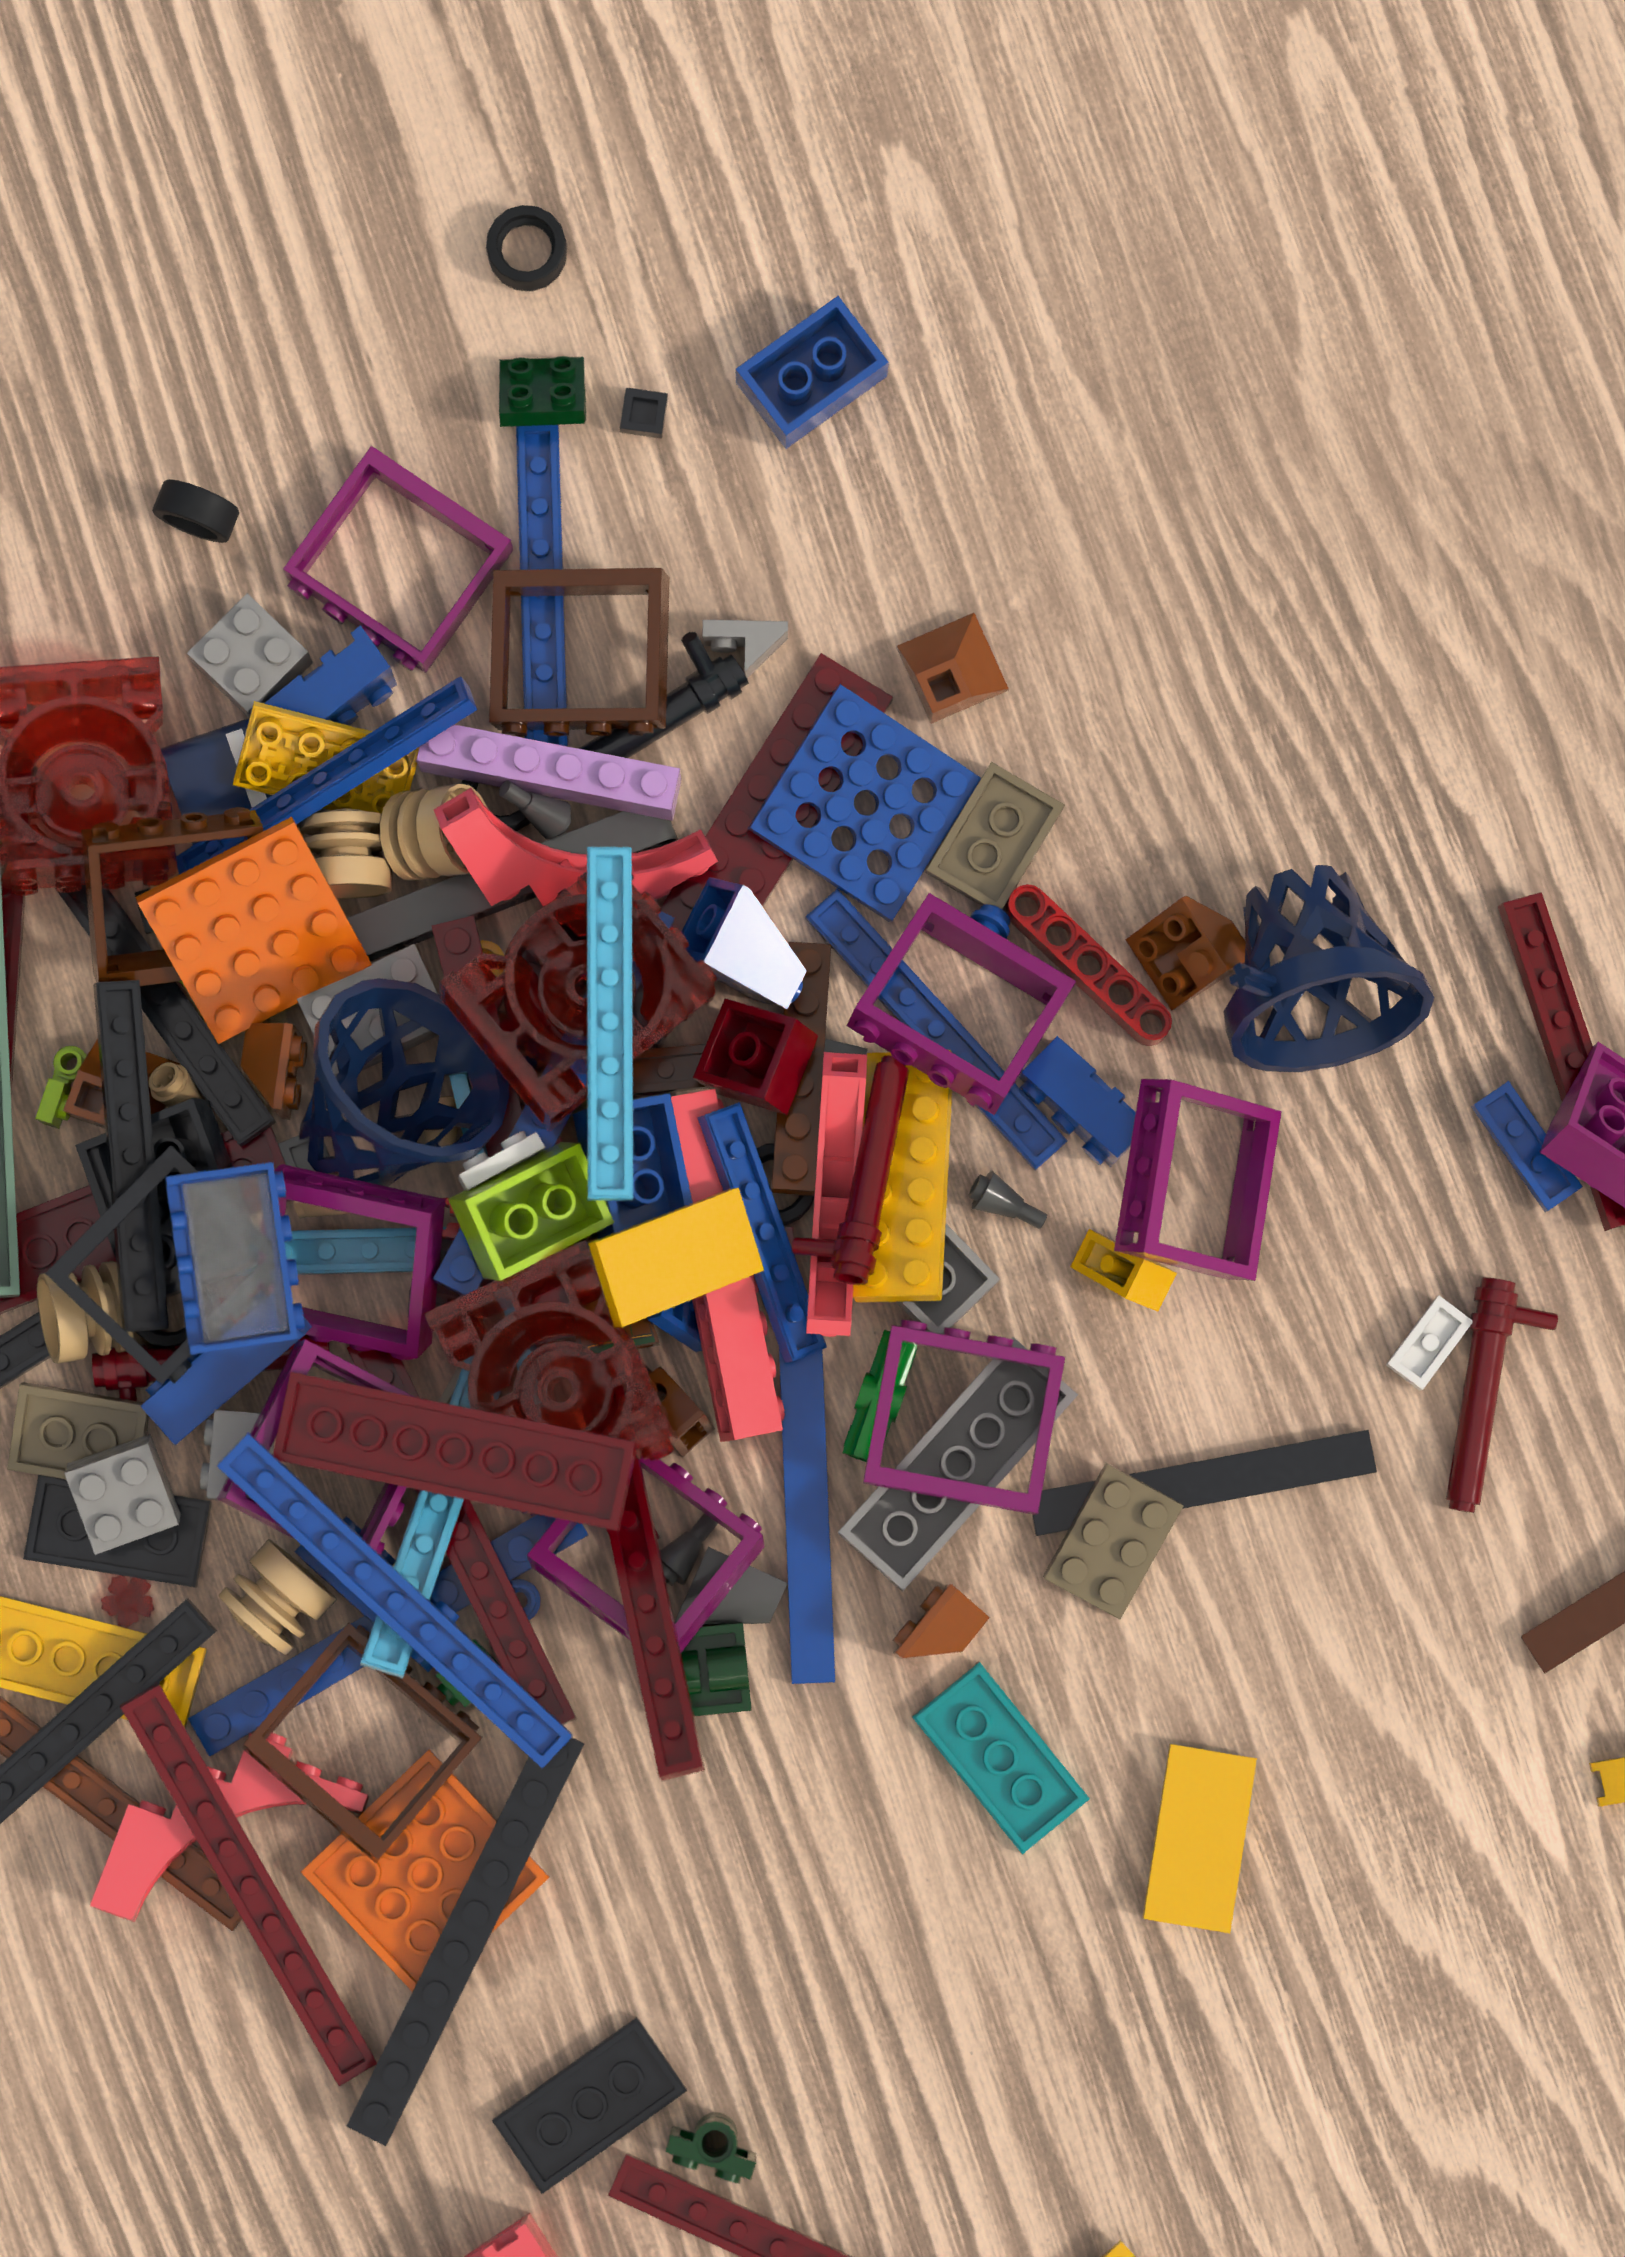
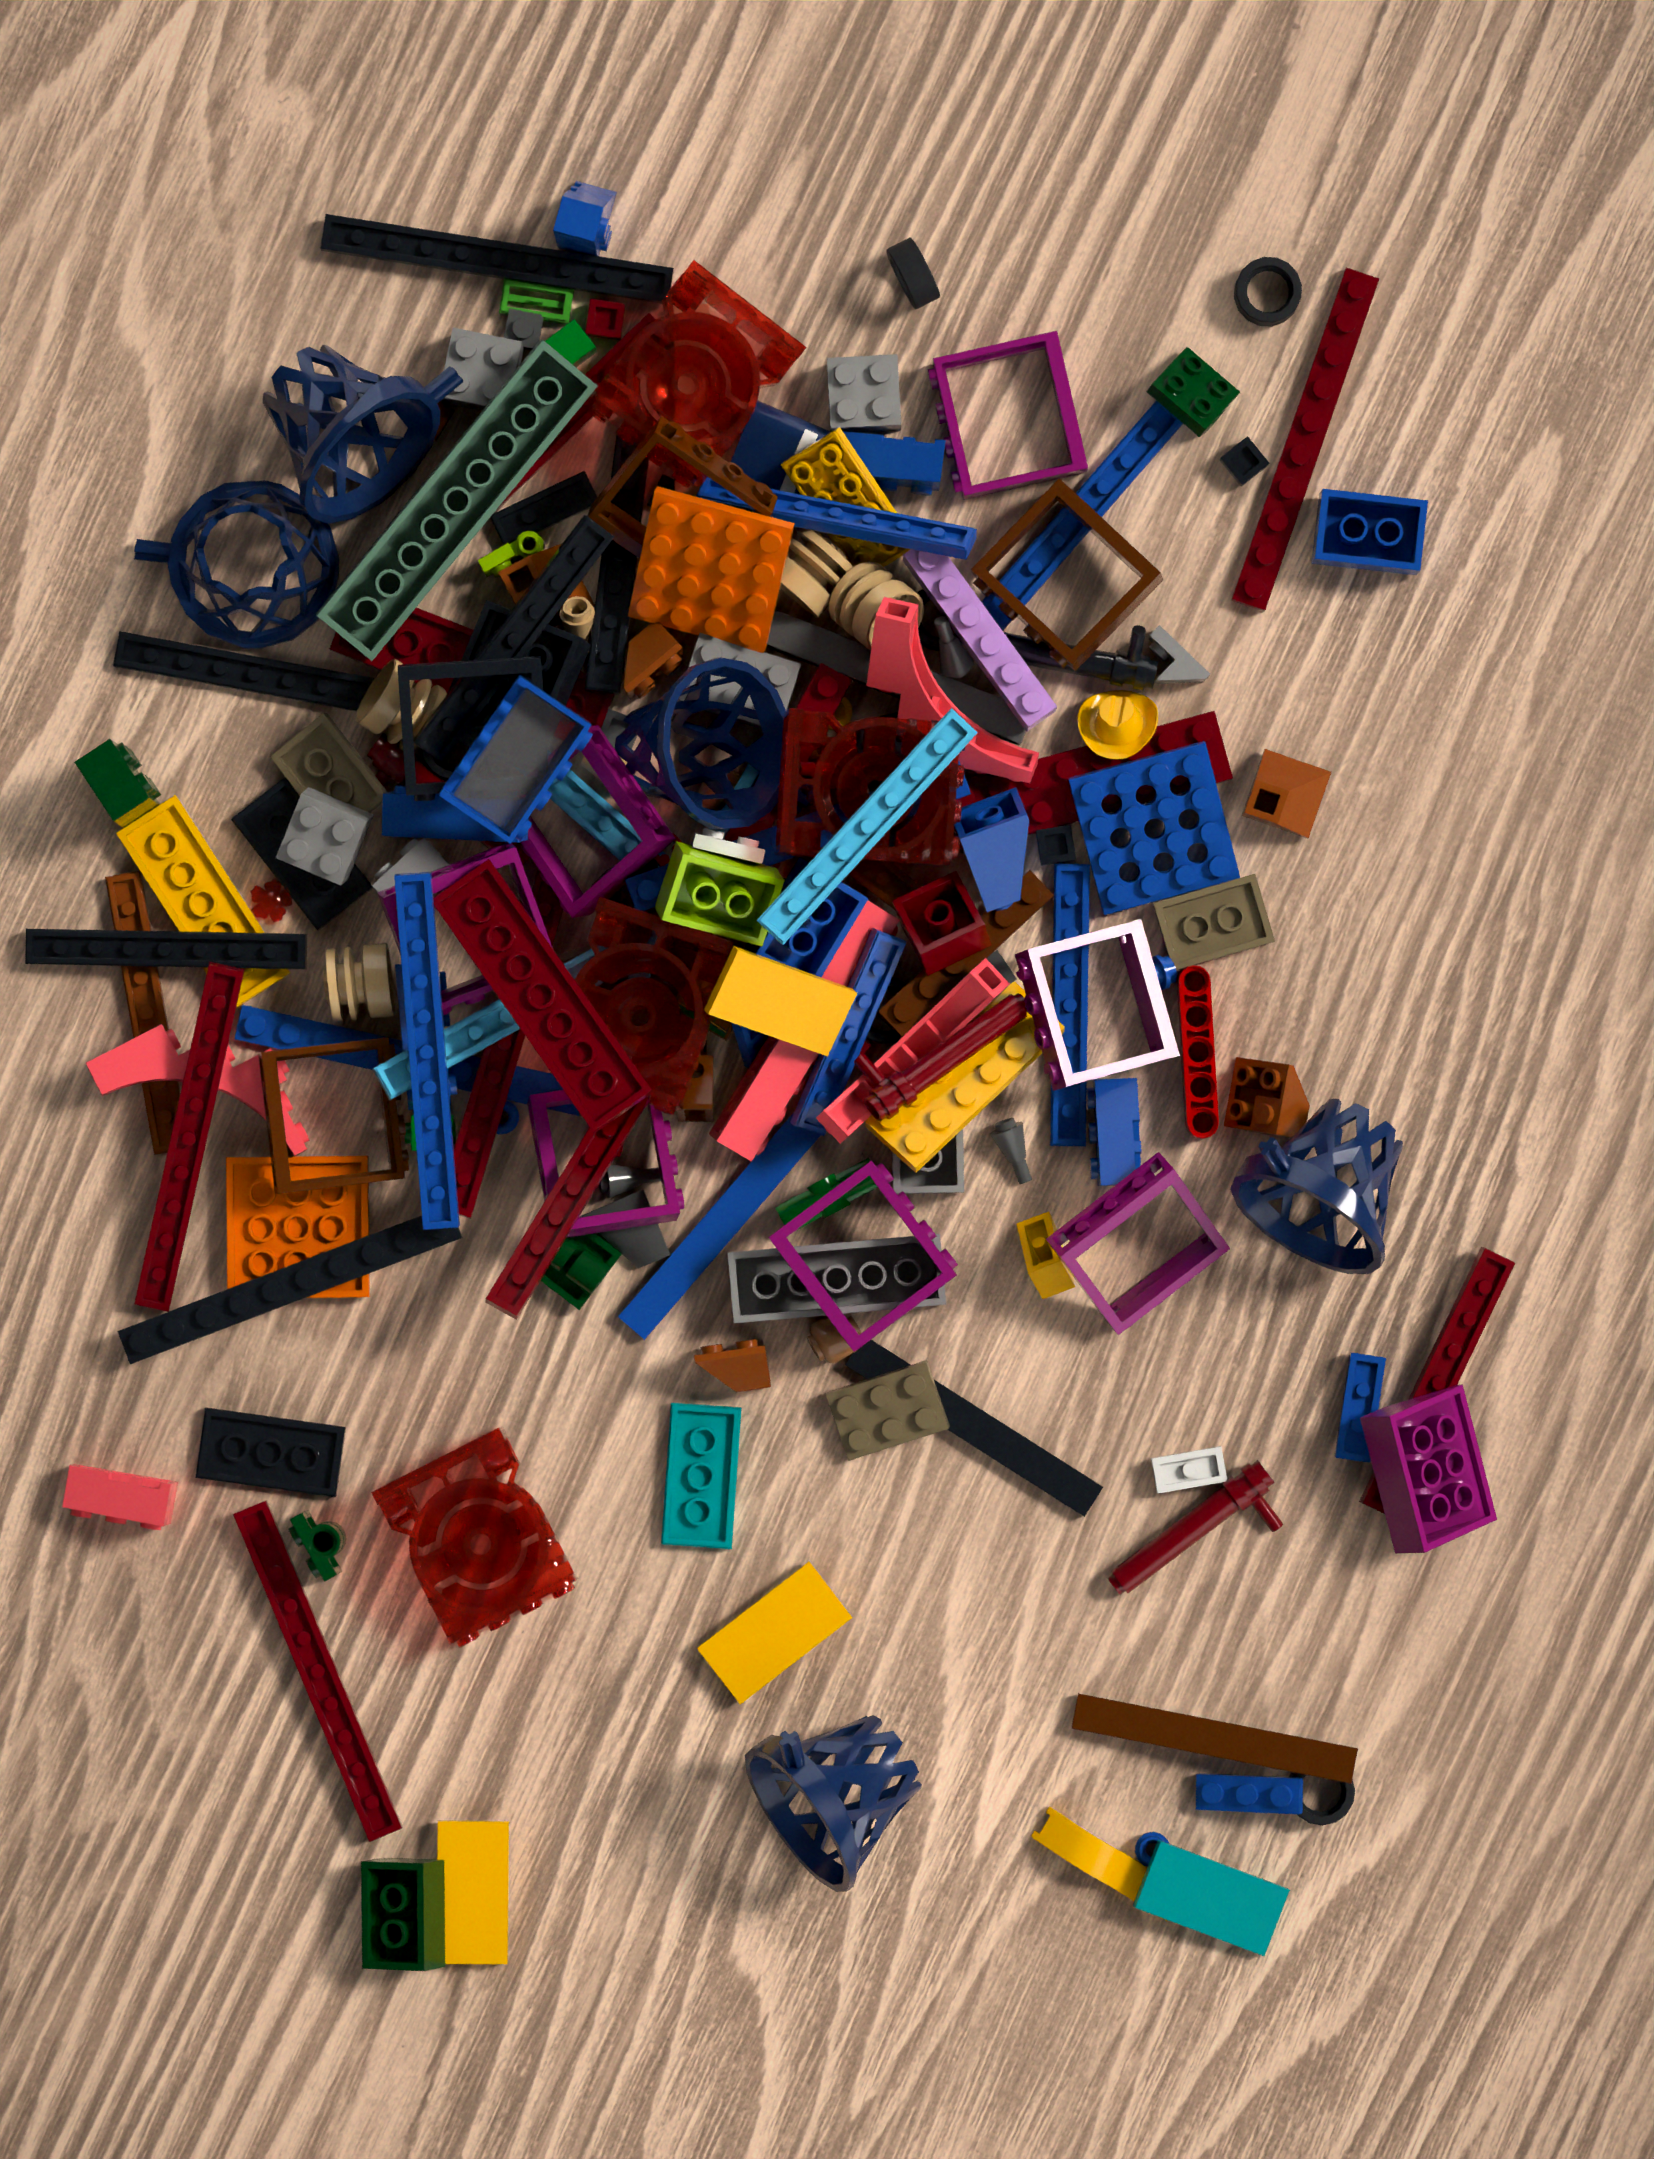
camera: 50 degrees right, 5 degrees up
(55, 1018) = (545, 508): none -> black tile
(679, 348) = (1305, 439): none -> dark red plate
(746, 740) = (1117, 723): none -> yellow hat
(791, 899) = (1055, 845): none -> black plate
(895, 2086) = (459, 1607): none -> clear red brick
(1002, 1528) = (828, 1342): none -> medium nougat head
(1382, 1937) = (826, 1791): none -> dark blue piece

